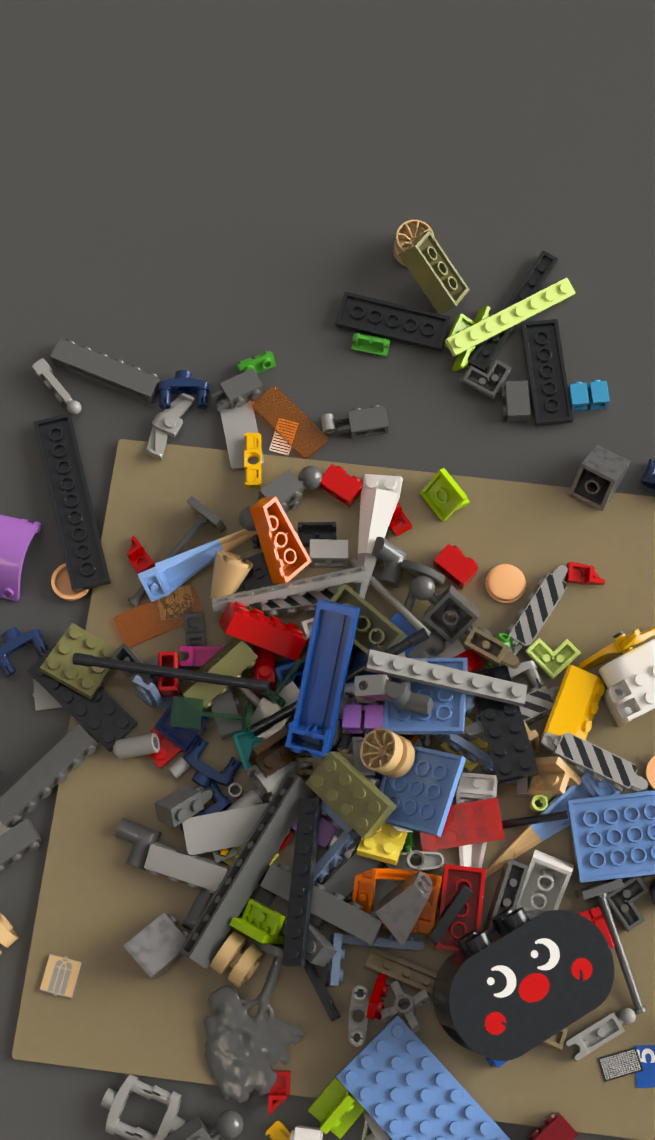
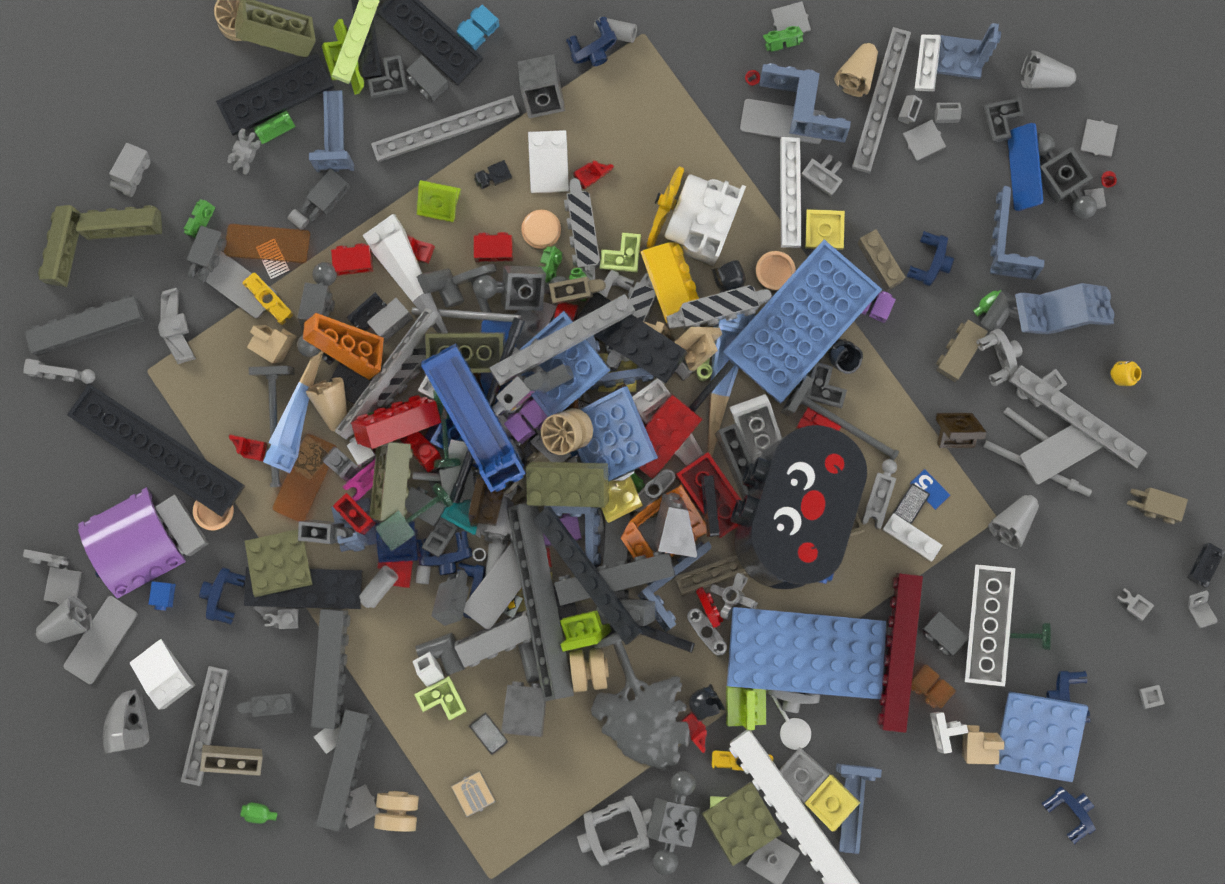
camera: 40 degrees left, 10 degrees up
(38, 572) = (181, 526): none -> light grey brick
(47, 709) = (286, 619): none -> light grey plate
(111, 877) = (444, 693): none -> yellowish green brick
(115, 844) = (428, 669): none -> white brick
(115, 938) = (488, 733): none -> sticker
(141, 301) = (60, 247): none -> olive slope
(183, 384) = (157, 284): dark blue connector -> none
(197, 319) = (120, 223): none -> olive slope
(216, 635) = (360, 453): none -> white brick
(217, 750) = (440, 537): none -> dark grey slope
(224, 494) = (271, 343): none -> tan plate
(238, 287) = (129, 169): none -> light grey hinge
(251, 684) = (288, 556): black piece -> none
(305, 1074) = (705, 703): none -> black helmet
(332, 341) = (243, 151): none -> light grey pin
(396, 399) = (334, 155): none -> sand blue bracket
(493, 612) = (552, 258): none -> bright green hinge
(498, 449) = (445, 128): none -> light grey plate
(508, 514) = (497, 172): none -> black plate
(556, 537) = (548, 161): none -> white slope
(597, 1093) = (912, 537): none -> white plate
(625, 744) = (729, 276): none -> black helmet

